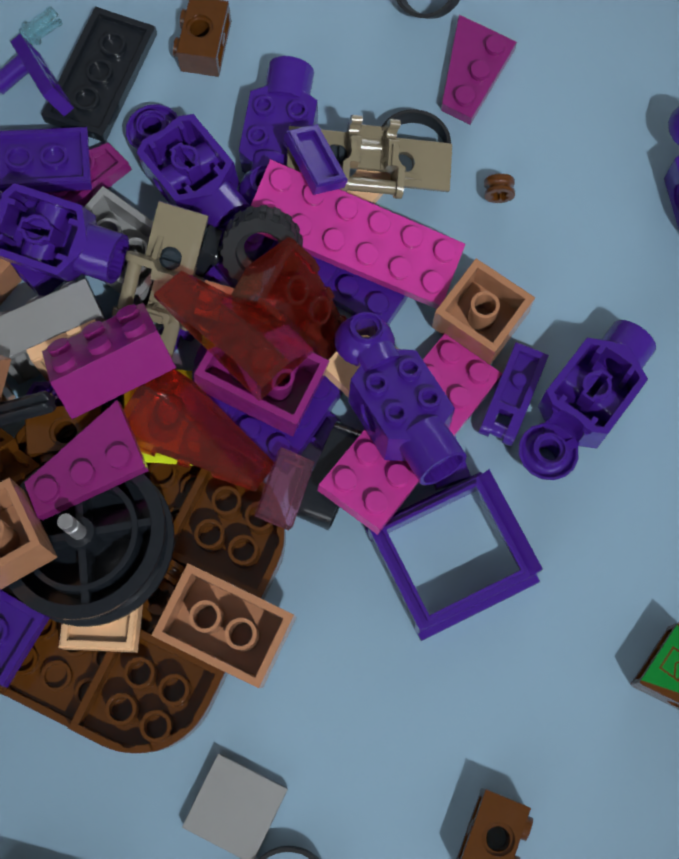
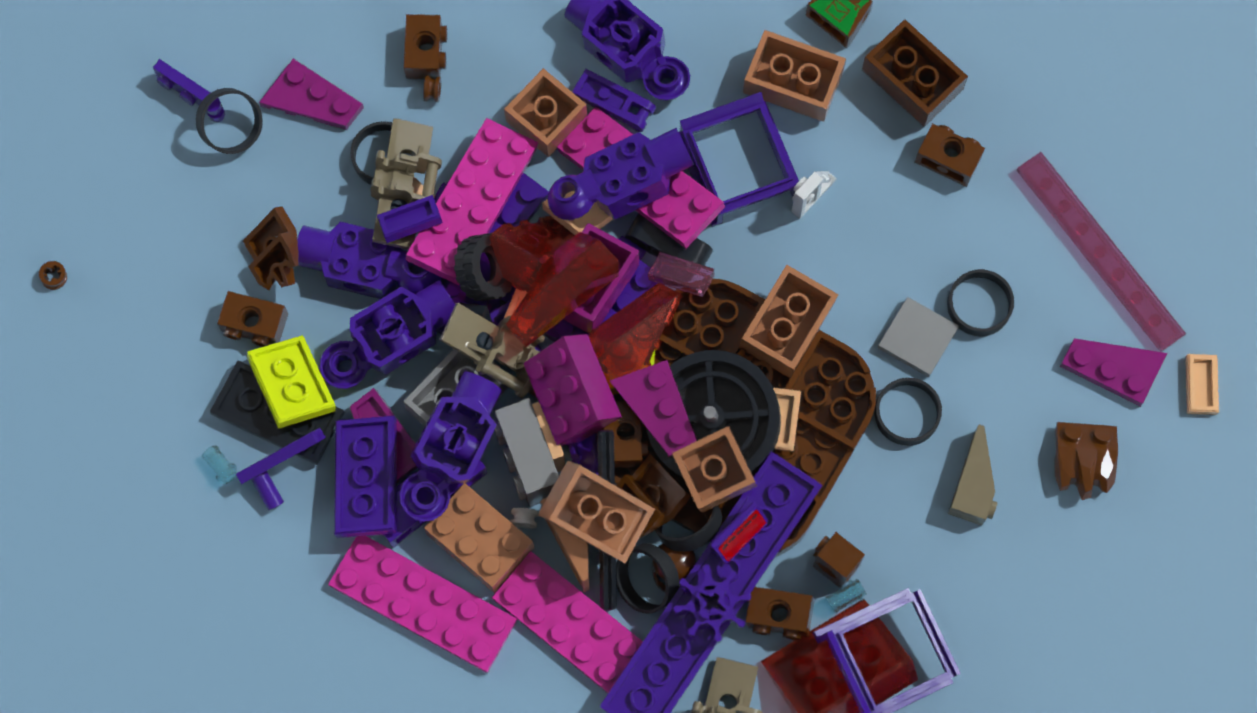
camera: 85 degrees left, 0 degrees up
(91, 801) = (912, 382): none -> black tyre
(130, 77) = (291, 381): none -> neon yellow tile
(272, 42) = (273, 249): none -> reddish brown plate
(411, 641) = (809, 191): none -> white wing
(563, 161) = (420, 31): none -> reddish brown brick
(575, 613) = (794, 75): none -> nougat brick
(603, 778) = (914, 72): none -> reddish brown brick

